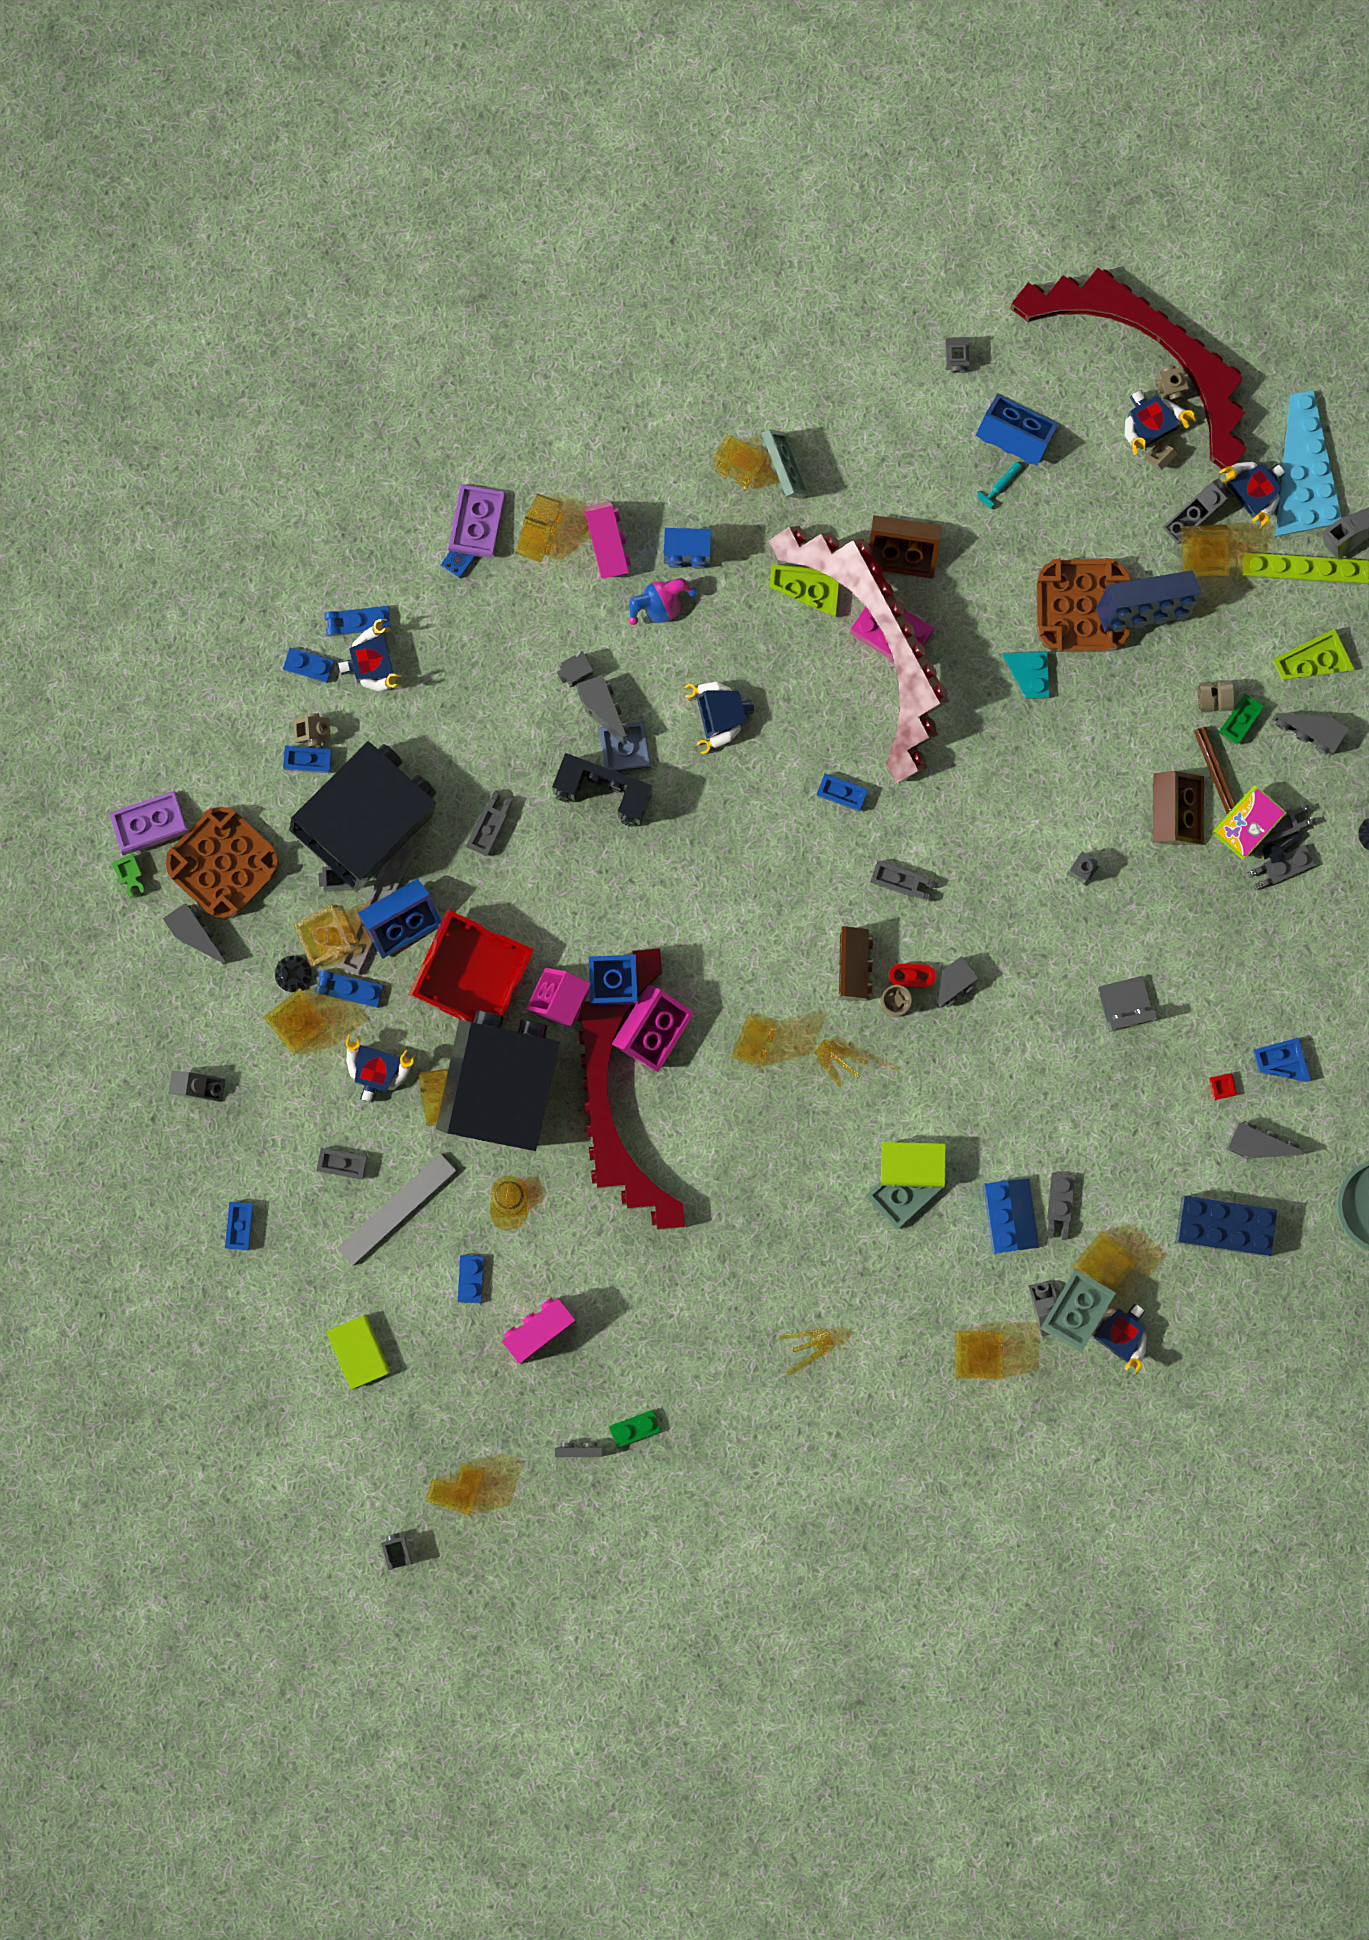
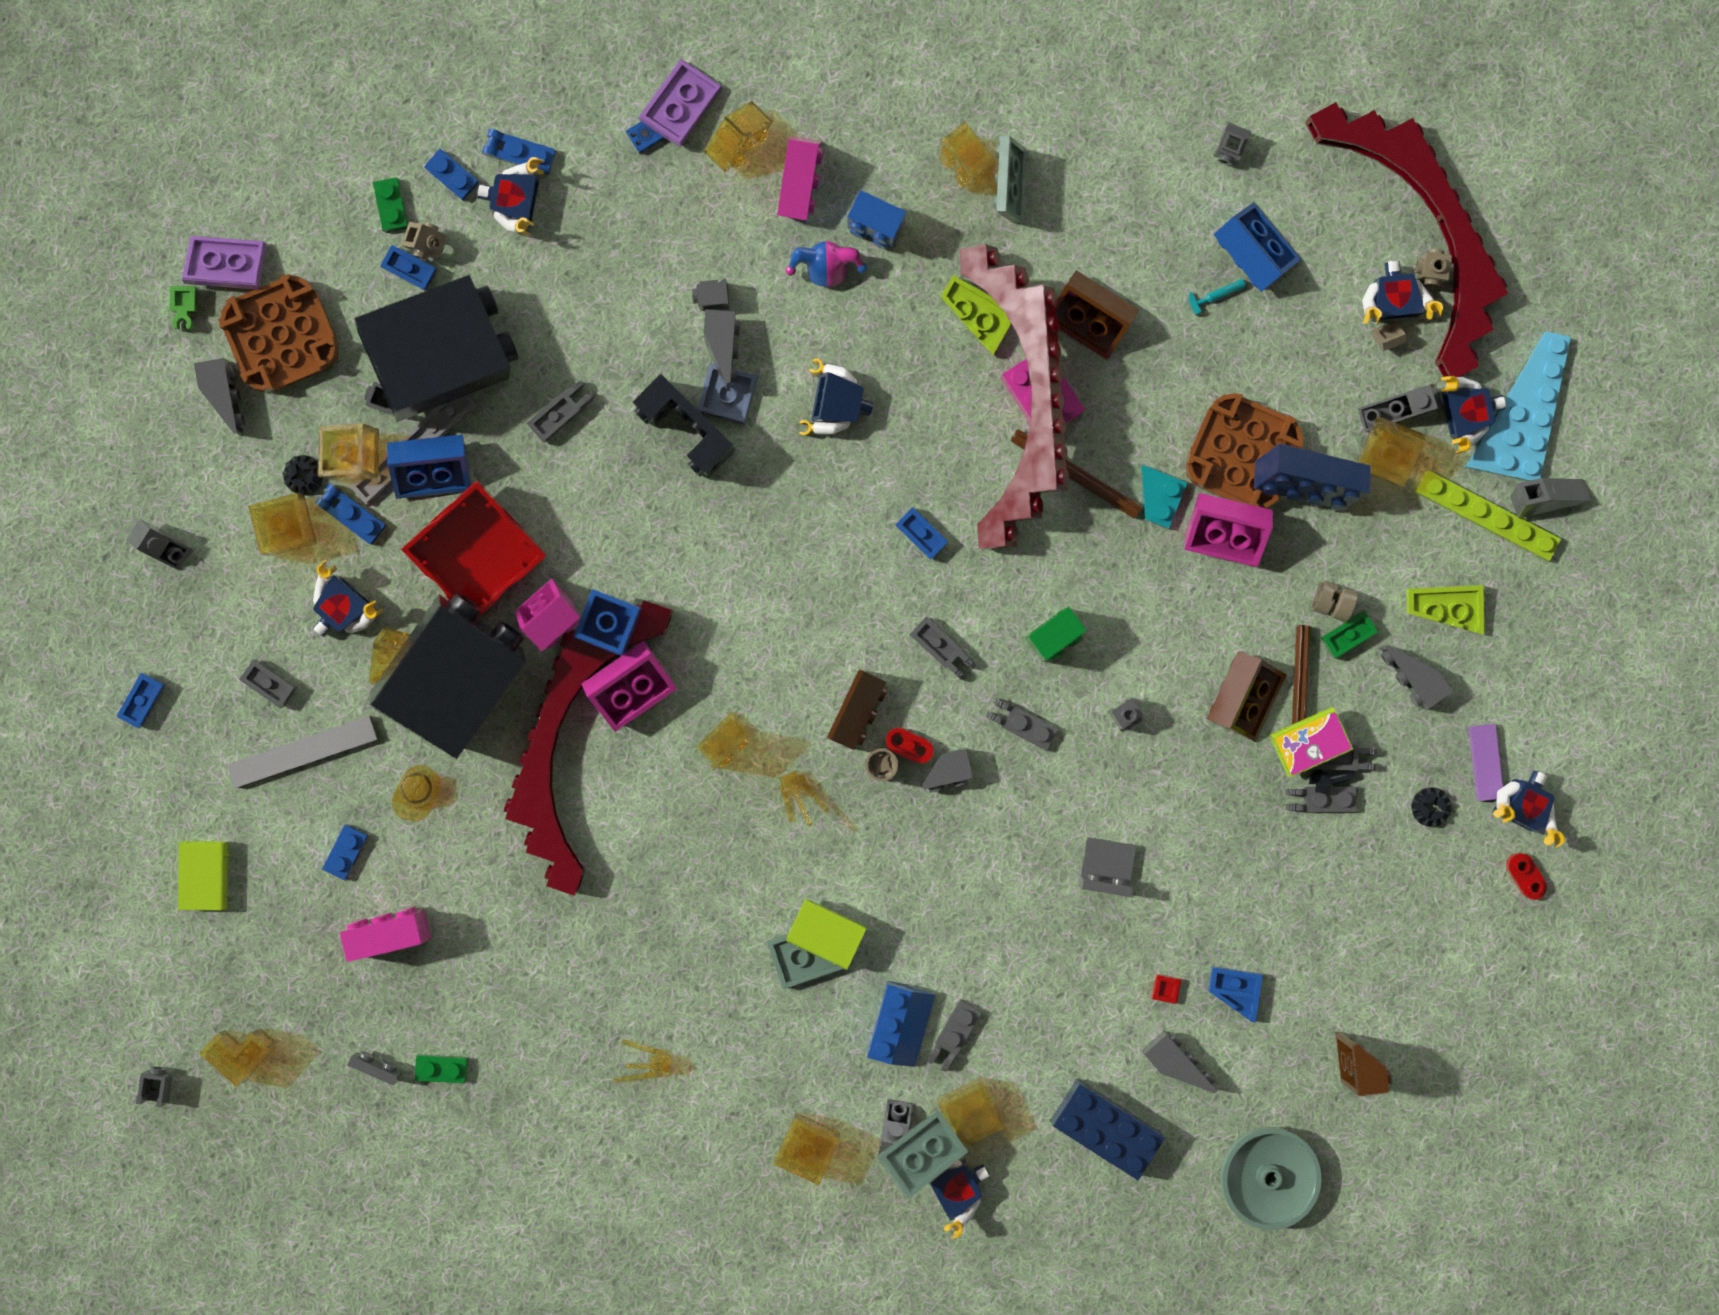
camera: 20 degrees right, 5 degrees up
(267, 713) = (390, 204): none -> green plate
(965, 687) = (1090, 482): none -> reddish brown axle
(993, 826) = (1056, 634): none -> green brick
(1001, 916) = (1024, 725): none -> dark grey hinge
(1099, 675) = (1228, 529): none -> dark pink brick

